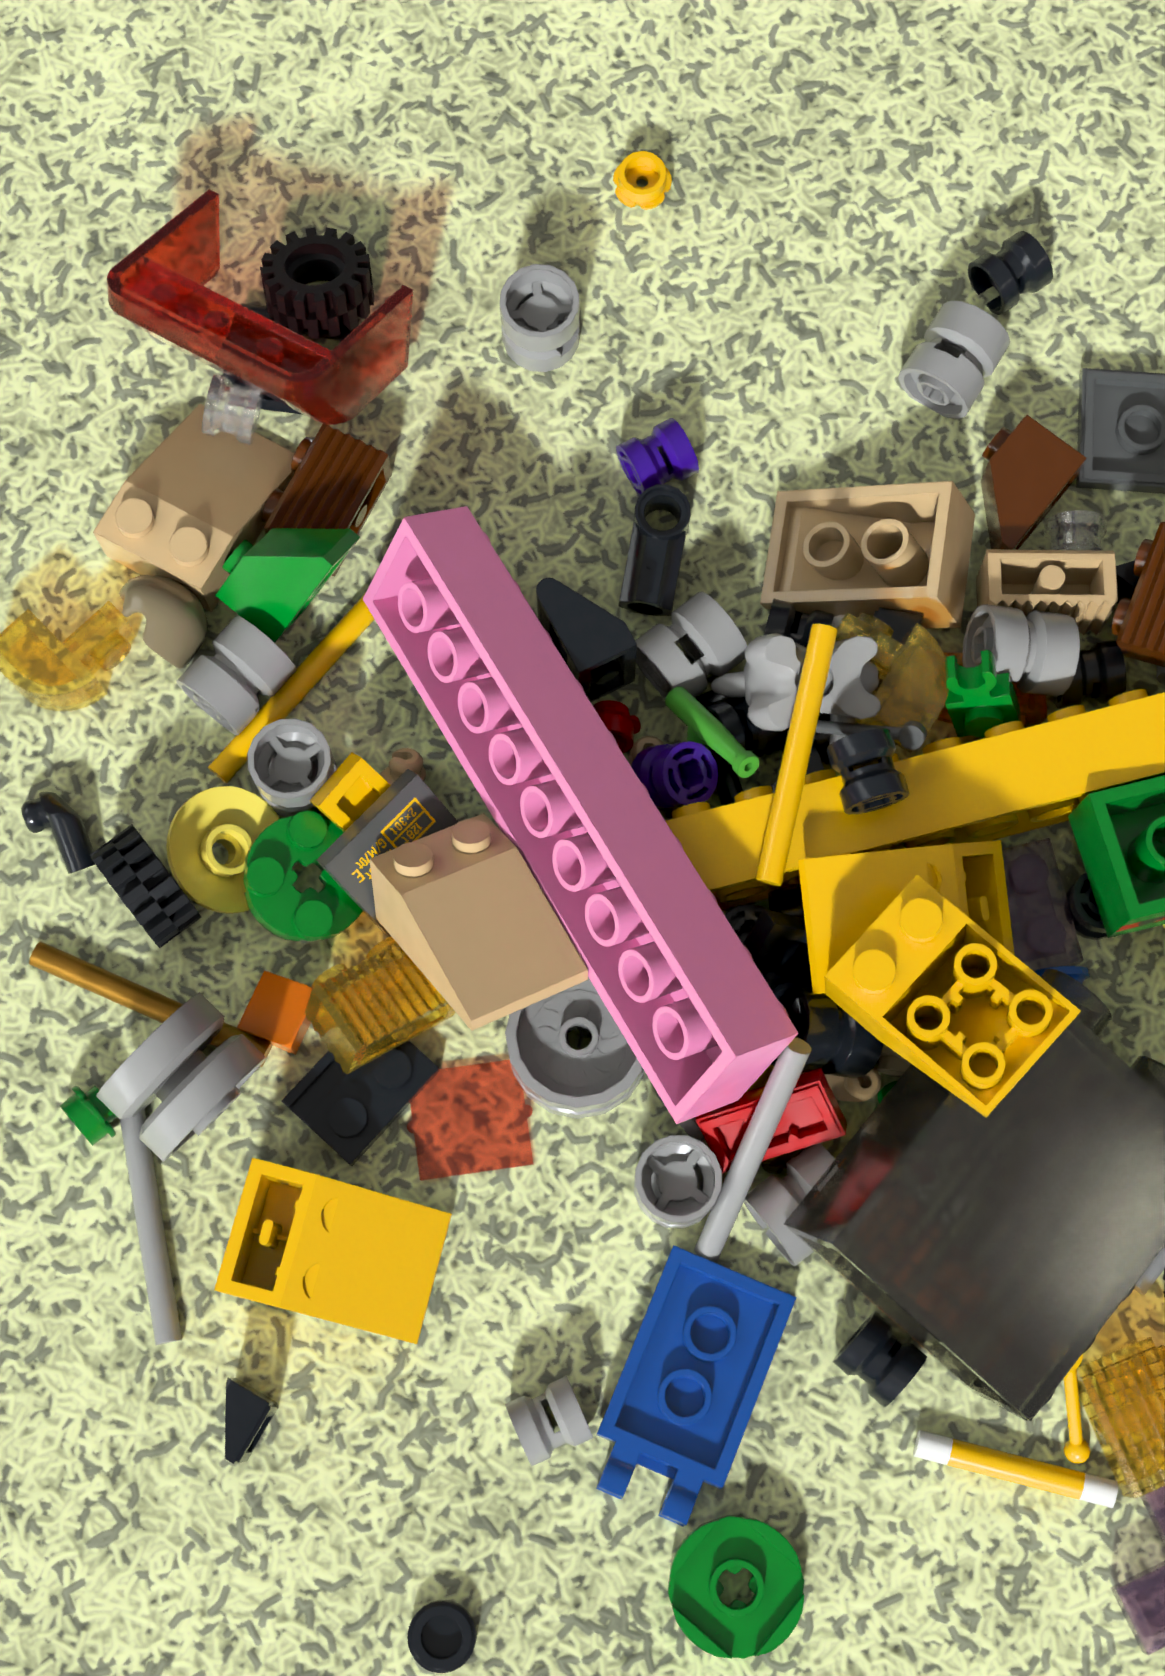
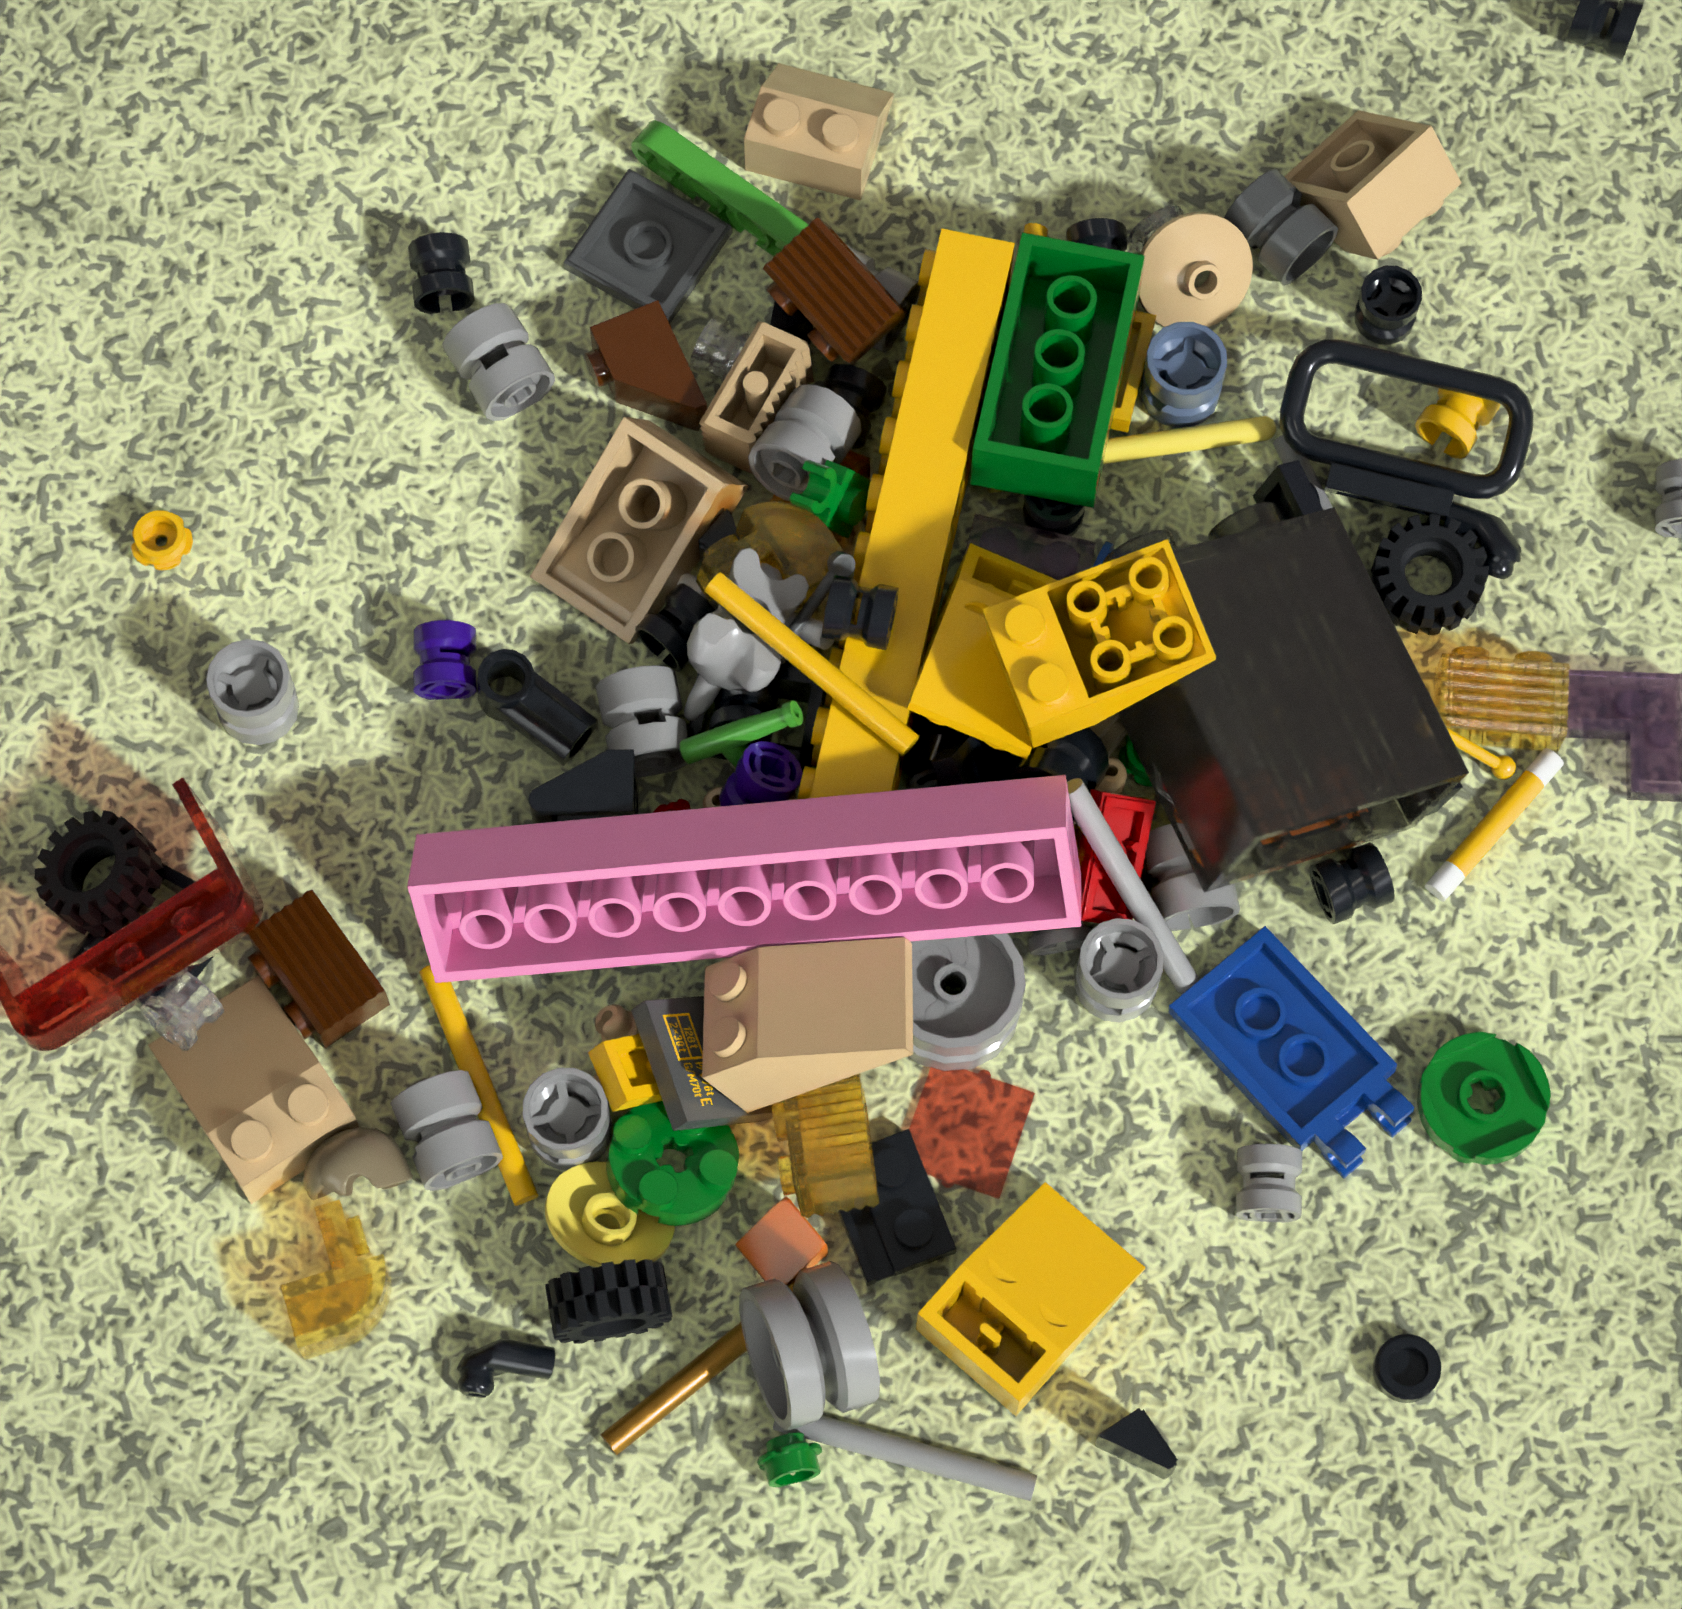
camera: 65 degrees left, 5 degrees down
(282, 574) = (379, 1033): green slope -> none

